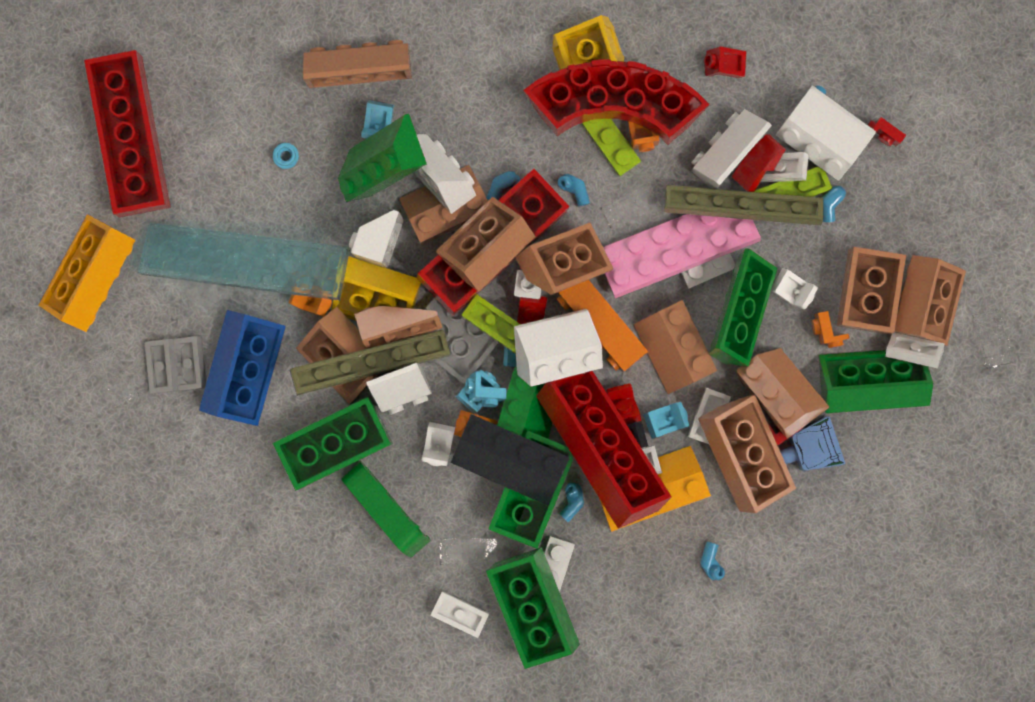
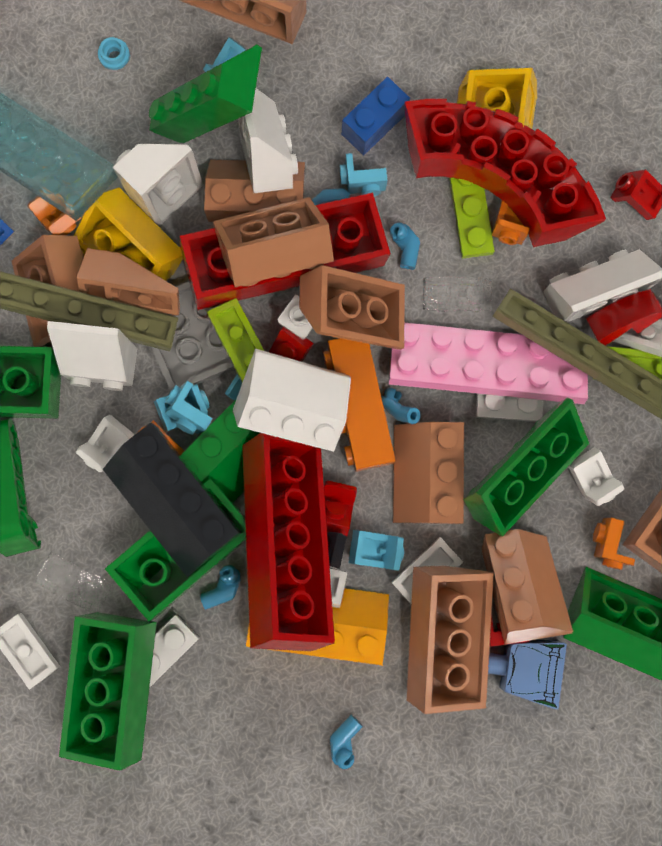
camera: 20 degrees right, 5 degrees down
(504, 105) = (374, 116): none -> blue brick
(523, 158) = (362, 180): none -> medium azure bracket
(634, 313) = (397, 410): none -> dark azure arm

